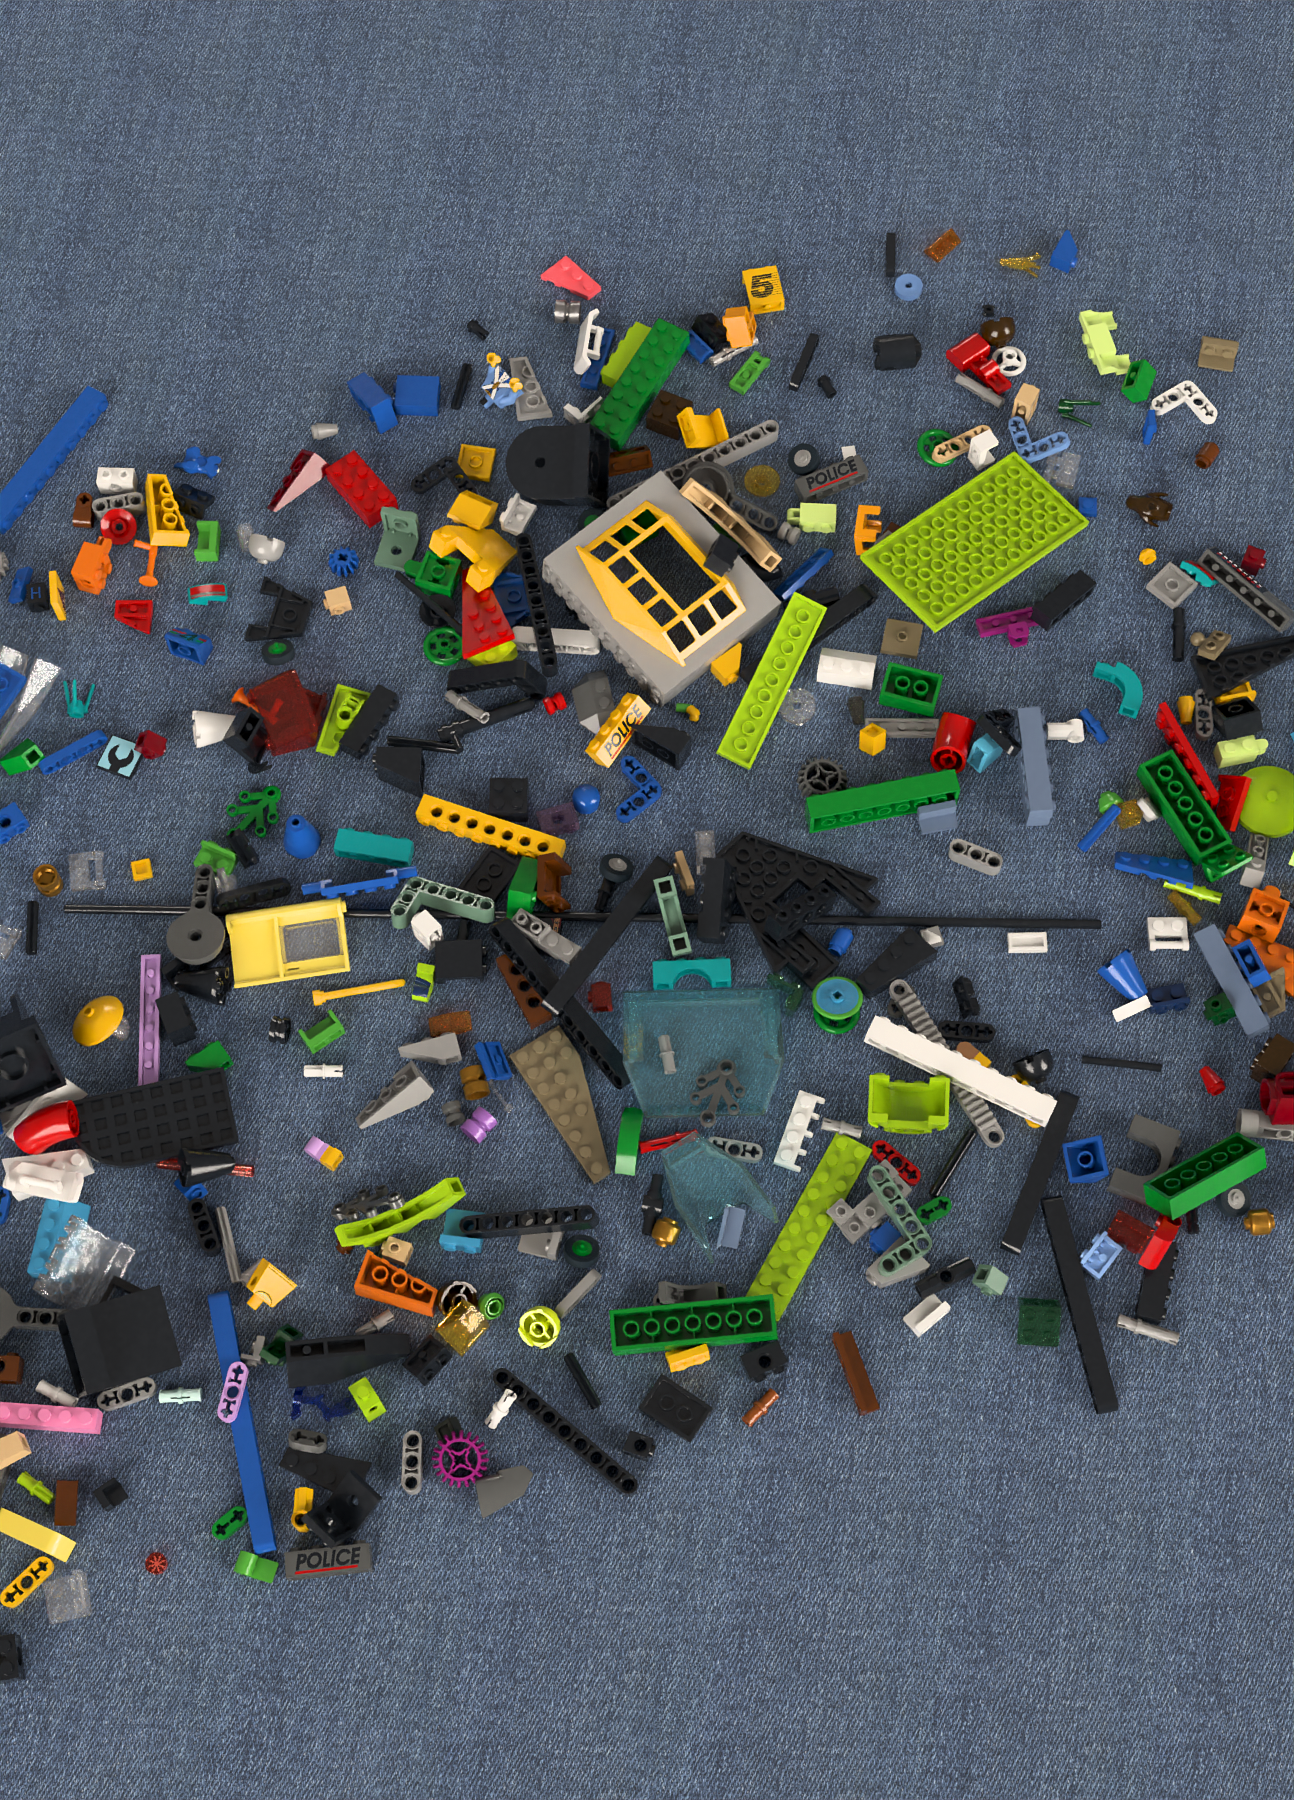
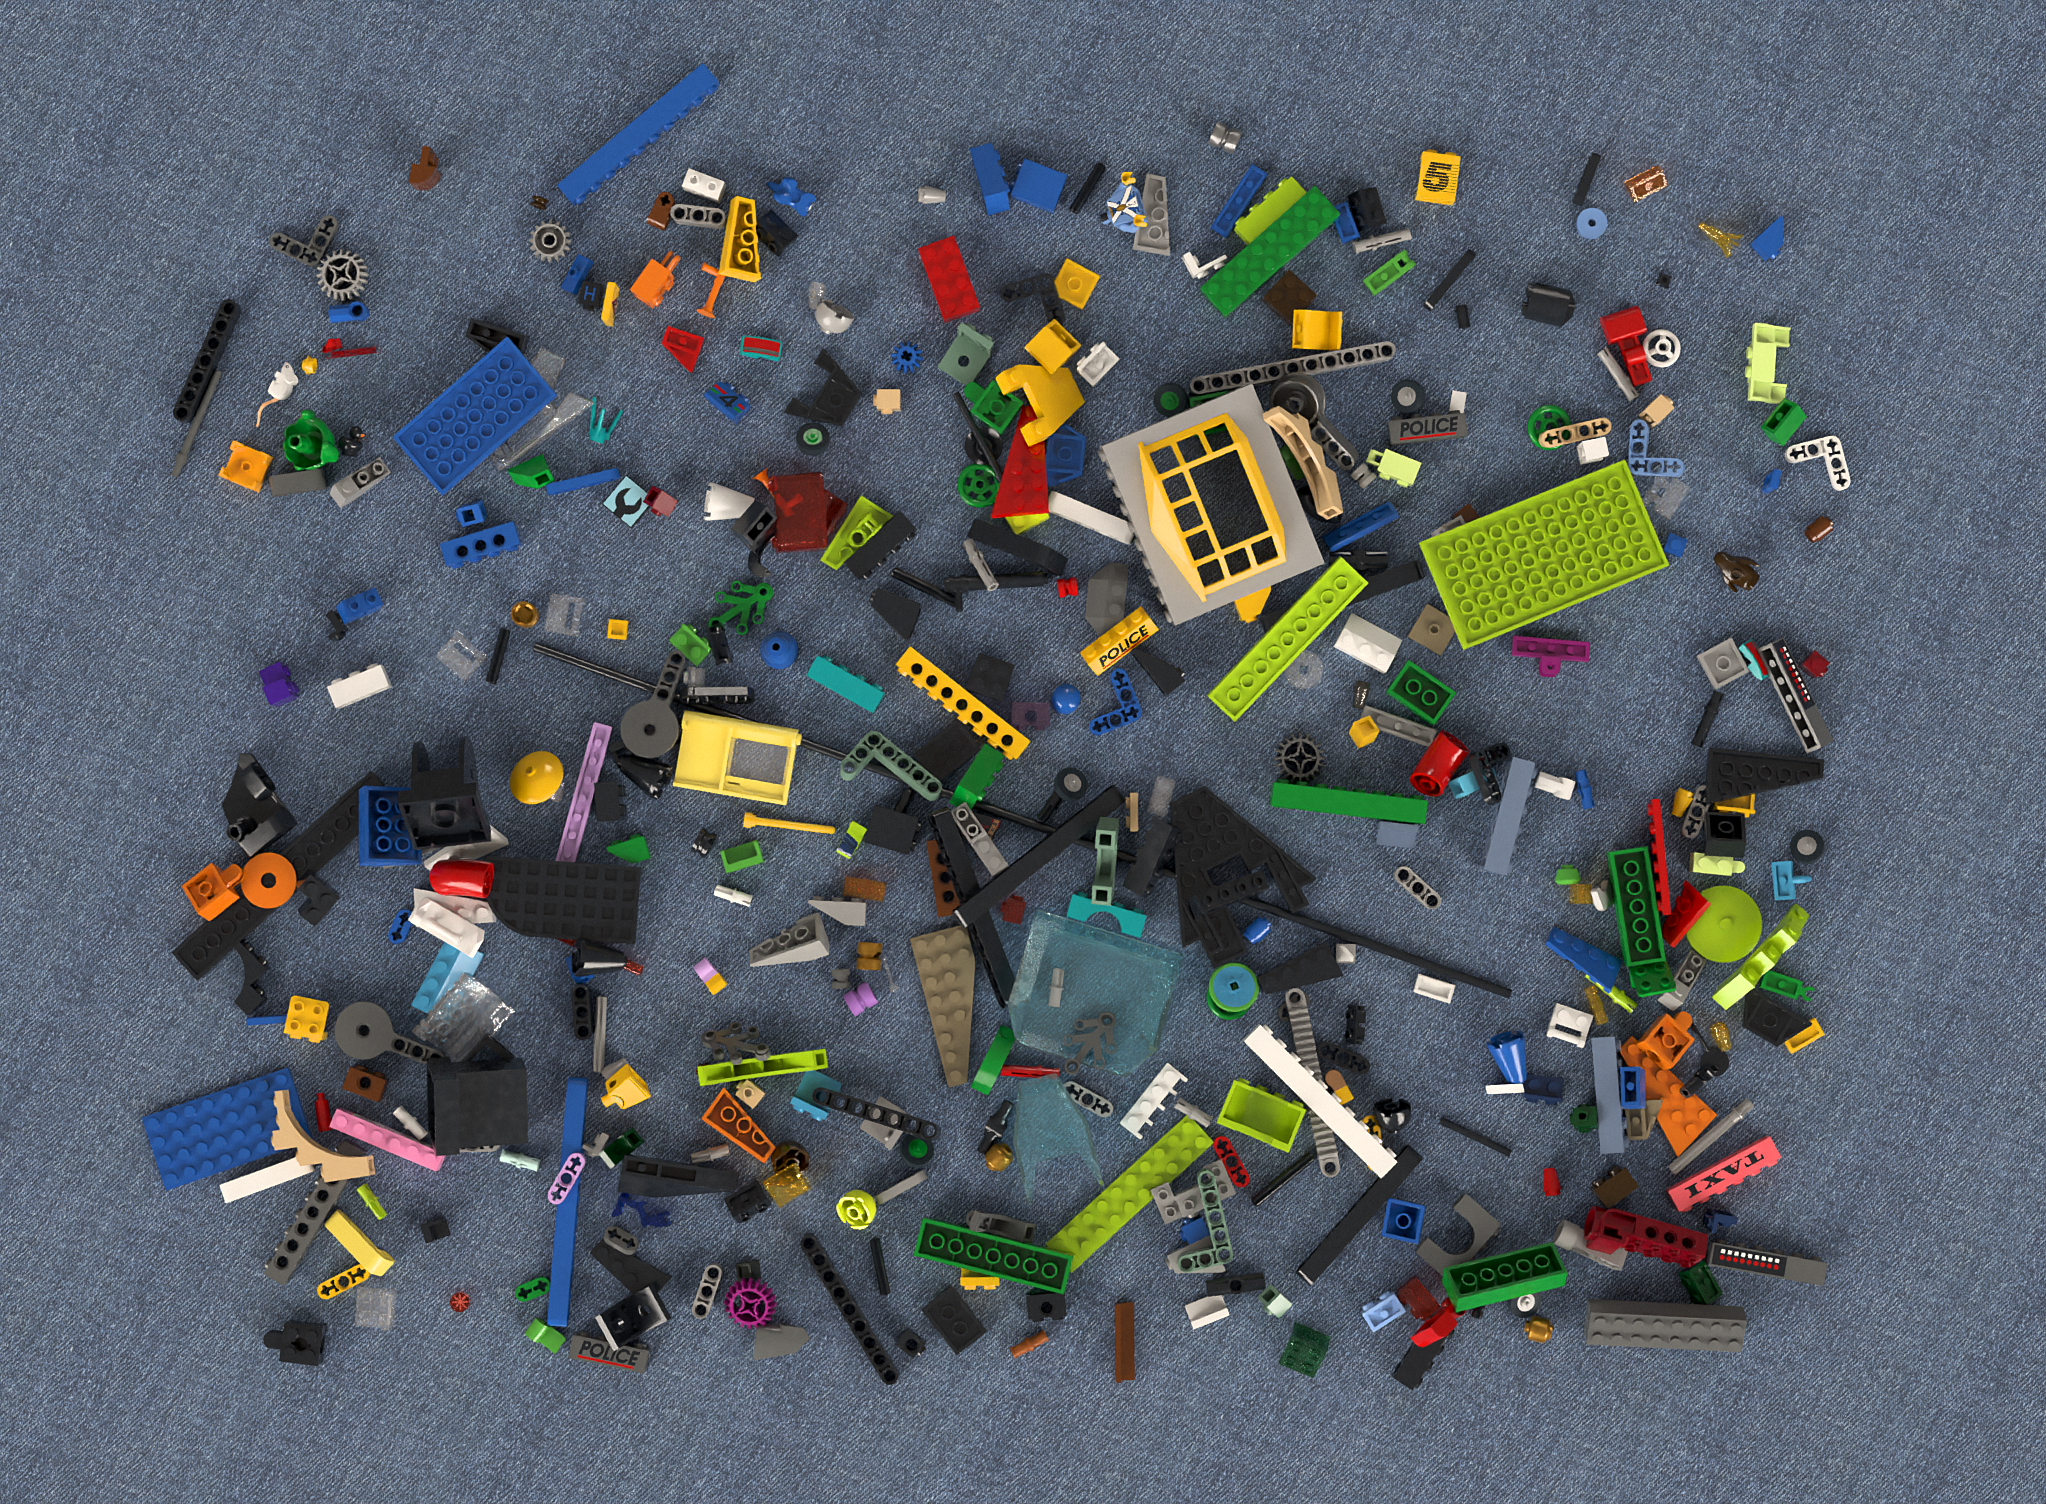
camera: 20 degrees right, 20 degrees up
(66, 1503) = (395, 1224): reddish brown slope -> none
(115, 517) = (688, 248): red dish -> none
(208, 541) = (777, 287): bright green panel -> none
(302, 1504) = (600, 1297): yellow piece -> none
(306, 471) = (895, 242): wedge -> none
(327, 888) = (822, 723): blue plate -> none
(367, 1399) = (683, 1219): lime torso -> none
(426, 929) = (870, 789): white brick -> none
(478, 330) = (1125, 125): black pin -> none
(491, 1305) = (819, 1172): bright green cone -> none
(493, 1061) = (893, 940): blue plate -> none
(500, 1408) = (799, 1271): white pin -> none
(525, 551) = (1083, 468): black beam -> none
(549, 872) = (1001, 782): reddish brown panel -> none
(561, 465) = (1155, 336): black piece -> none
(572, 277) = (1243, 92): coral wing -> none
(582, 362) = (1225, 188): white piece -> none
(630, 460) = (1216, 336): reddish brown fence -> none
(690, 709) = (1199, 639): arm -> none
(721, 555) = (1279, 503): black brick -> none
(731, 1226) = (1059, 1173): sand blue panel -> none
(740, 326) = (1396, 222): light orange brick -> none
(762, 474) = (1360, 397): clear yellow dish -> none
(793, 989) = (1195, 971): clear green bracket -> none
(866, 529) = (1443, 490): light orange panel -> none
(936, 1214) = (1247, 1213): green beam -> none
(998, 332) = (1661, 316): dark brown cylinder -> none
(1062, 600) = (1604, 648): black brick -> none
(1067, 405) = (1700, 422): dark green plant -> none
(1079, 1305) = (1346, 1347): black beam -> none
(1099, 828) = (1546, 899): blue axle -> none
(1128, 684) = (1636, 758): teal arch -> none
(1147, 556) = (1712, 622): yellow plate -> none
(1147, 1329) = (1391, 1385): light grey pin -> none
(1211, 646) = (1735, 743): dark tan plate -> none
(1217, 353) = (1879, 413): dark tan bracket -> none

